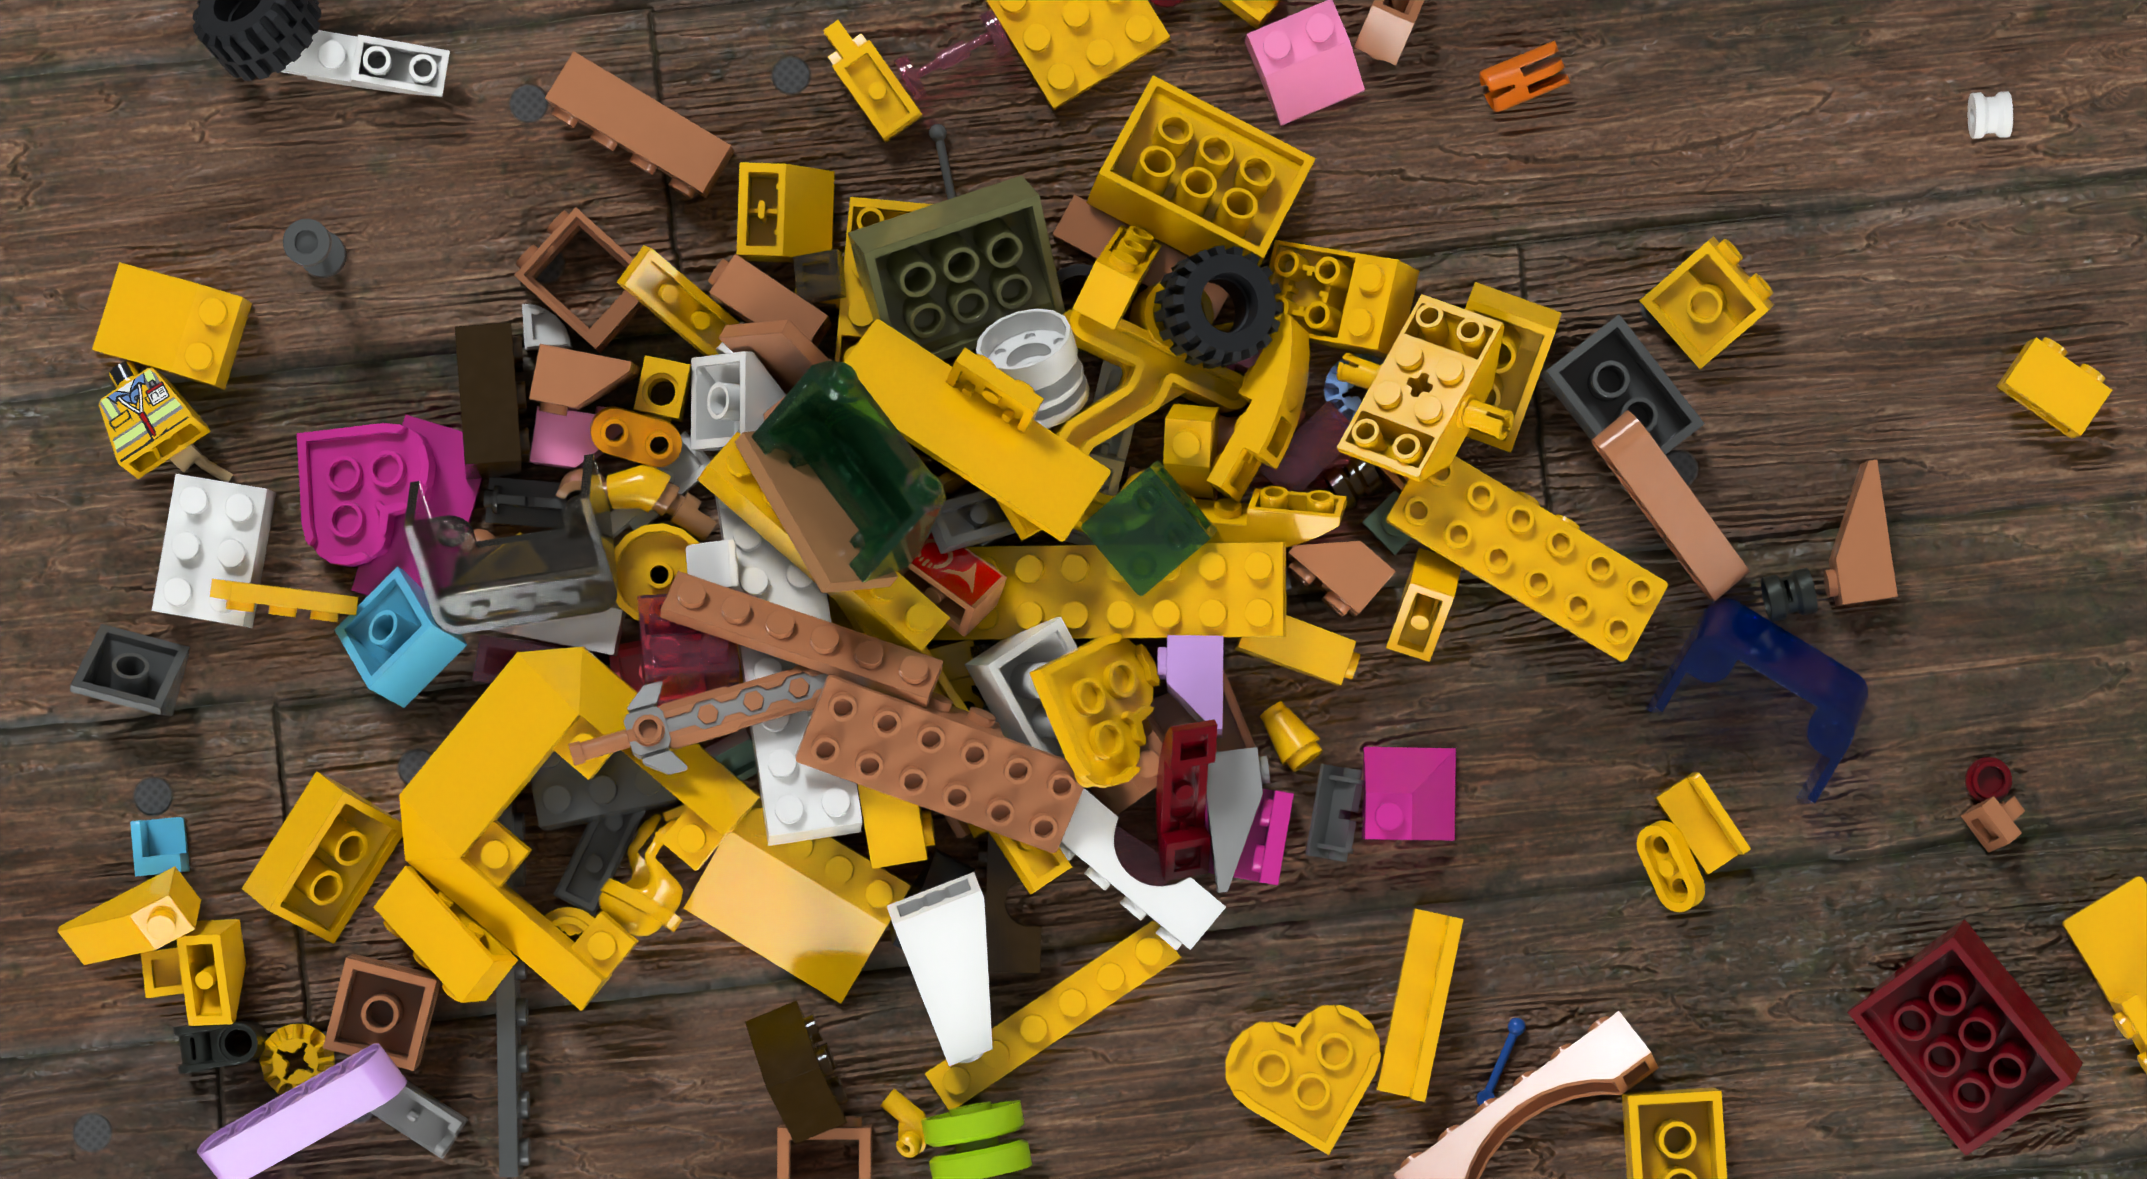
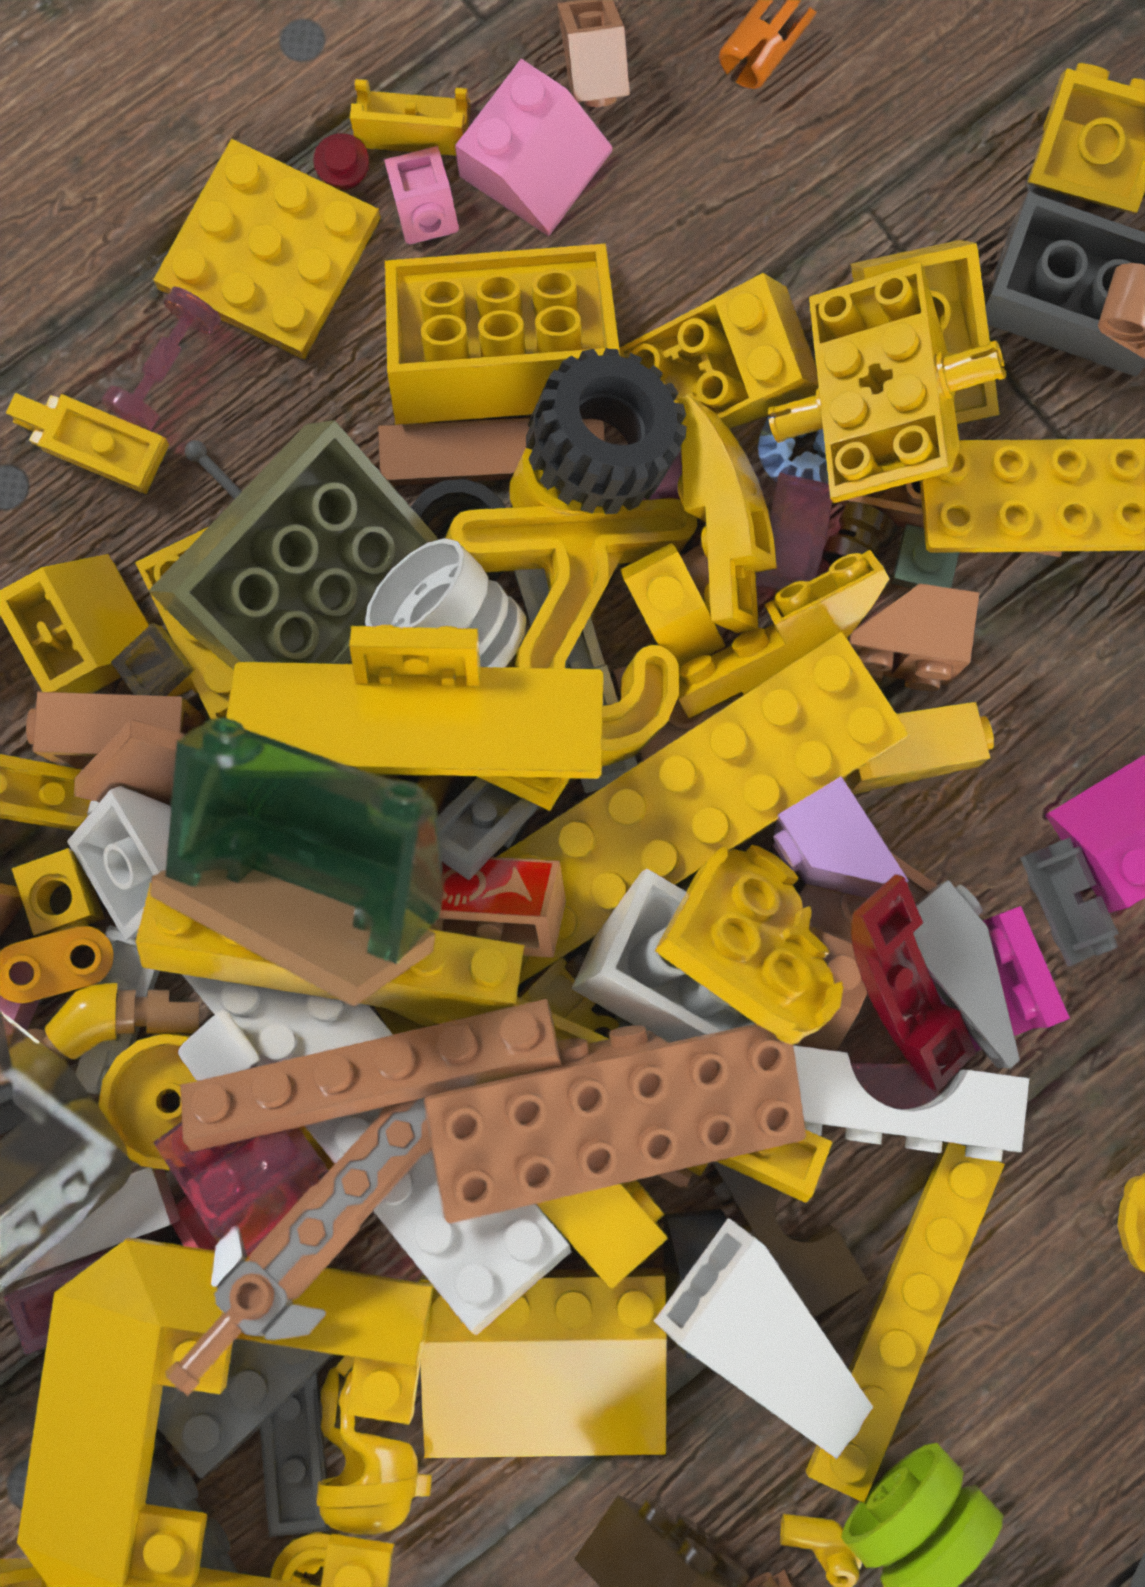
camera: 30 degrees left, 5 degrees down
(736, 754) = (375, 1251): sand green plate -> none
(1117, 275) = (474, 467): yellow slope -> none
(1149, 528) = (683, 712): clear green bracket -> none
(1207, 44) = (422, 195): none -> bright pink bracket
(1291, 737) = (966, 850): yellow cone -> none
(1424, 605) = (1017, 621): yellow slope -> none

